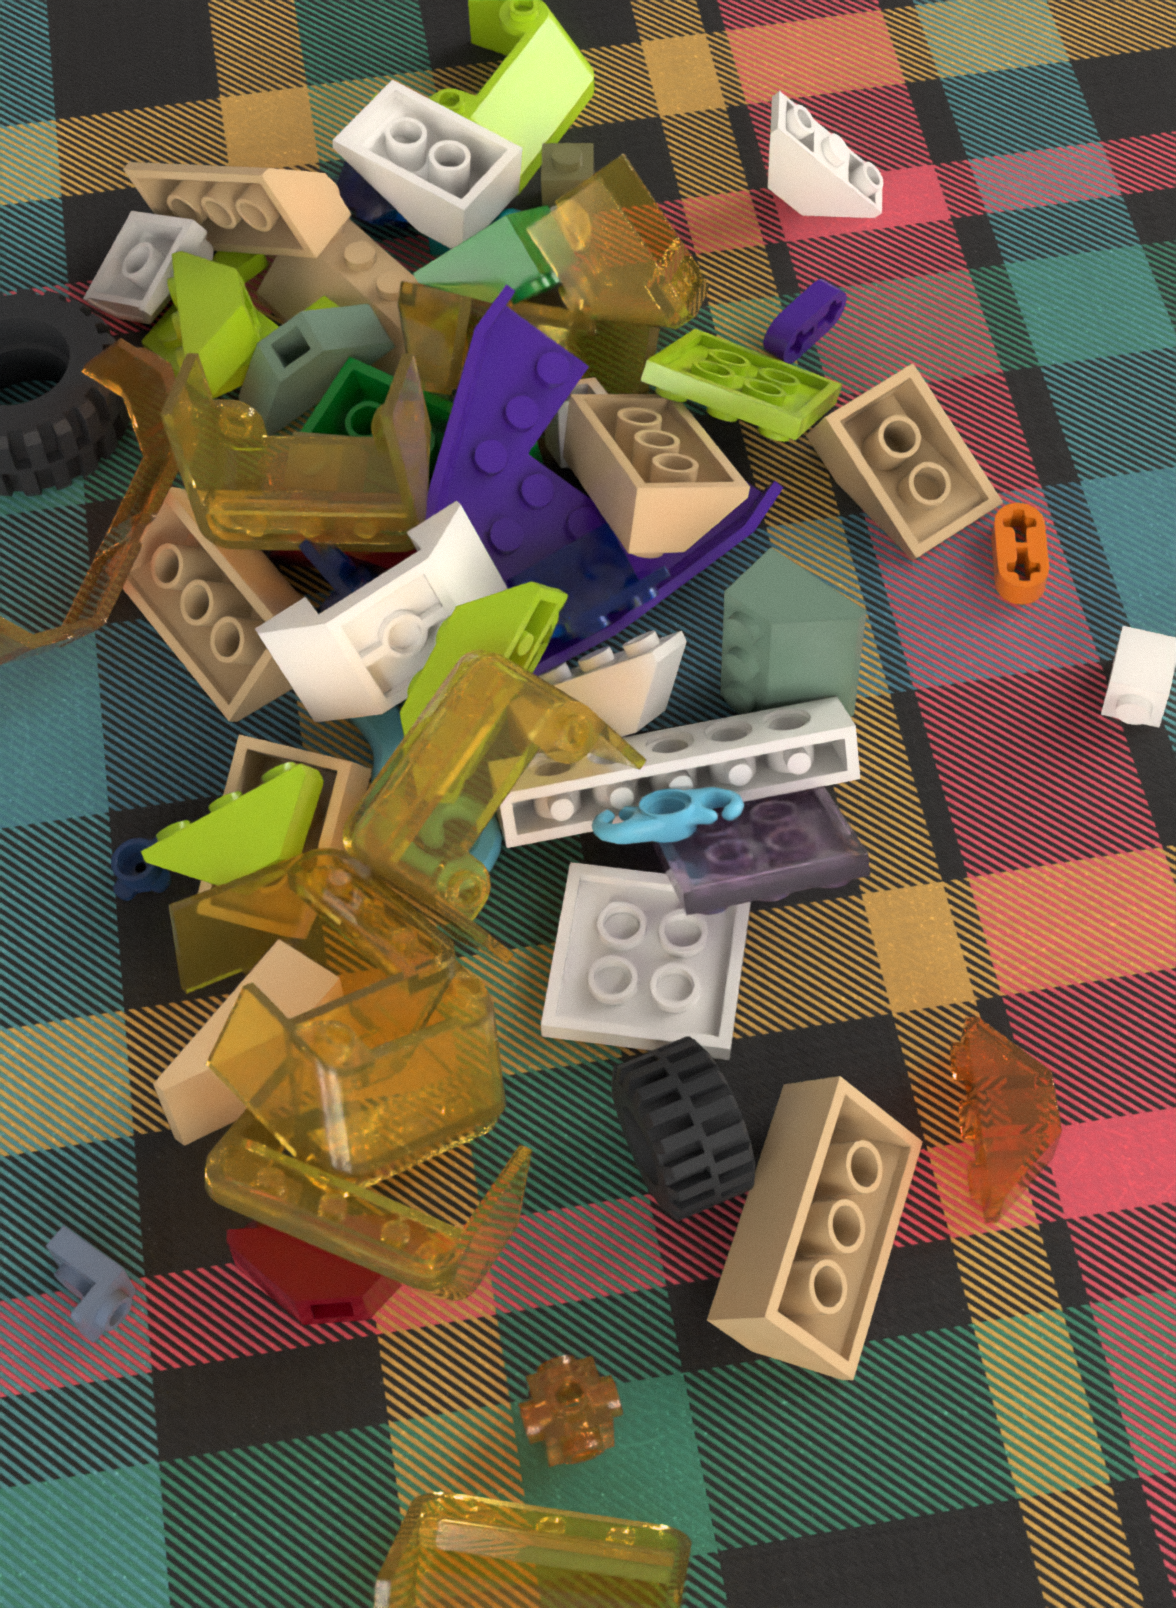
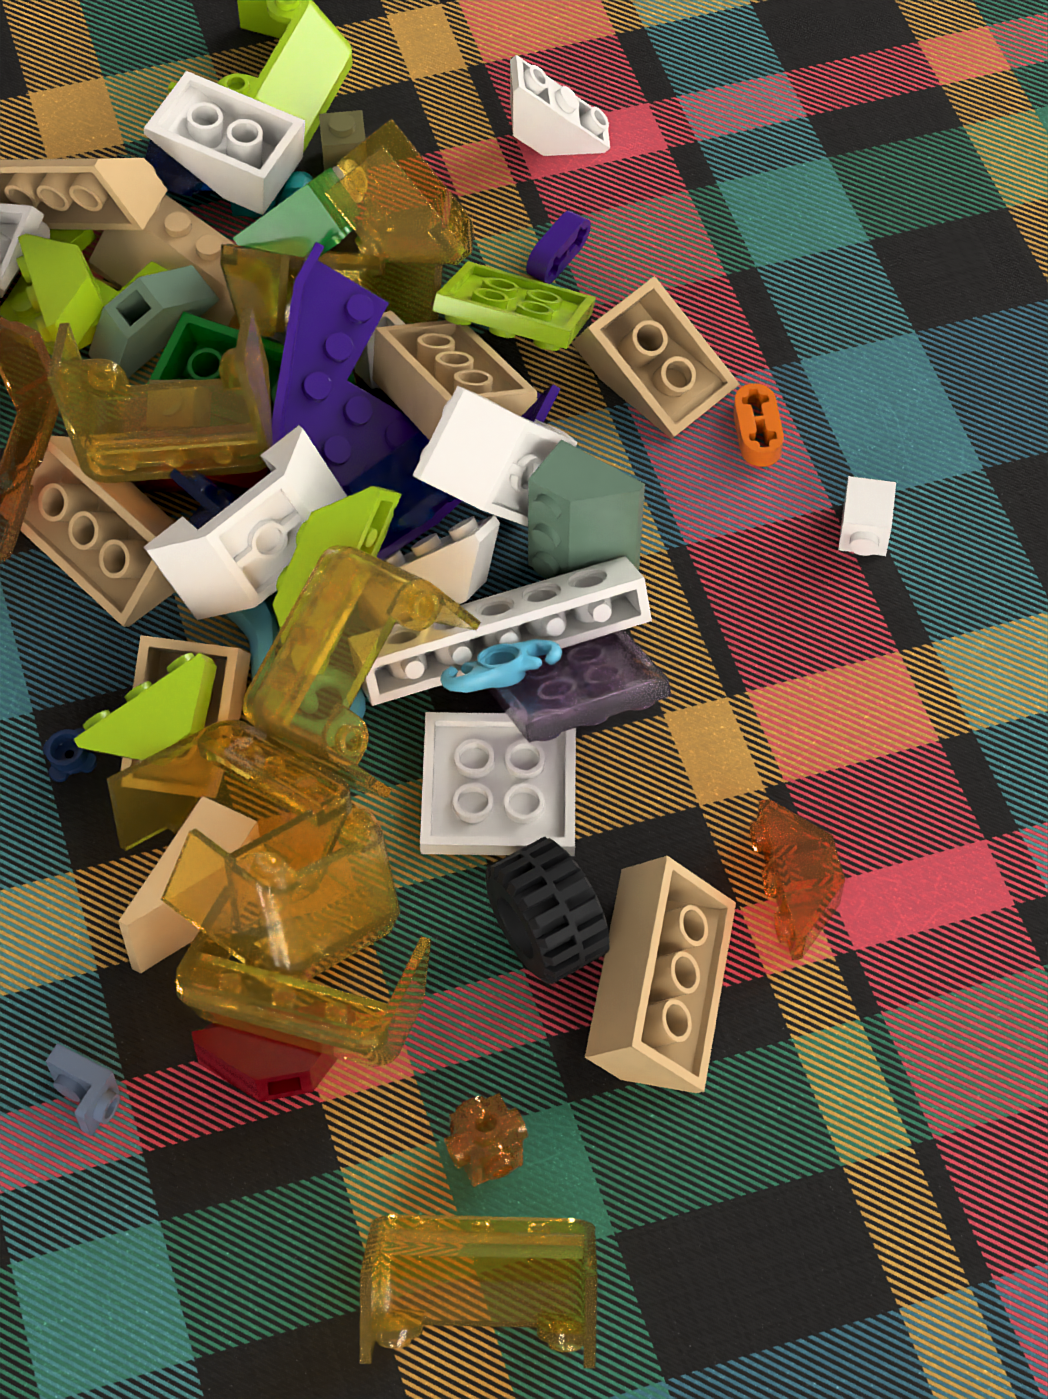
camera: 10 degrees left, 0 degrees up
(678, 557) = (486, 454): none -> white slope

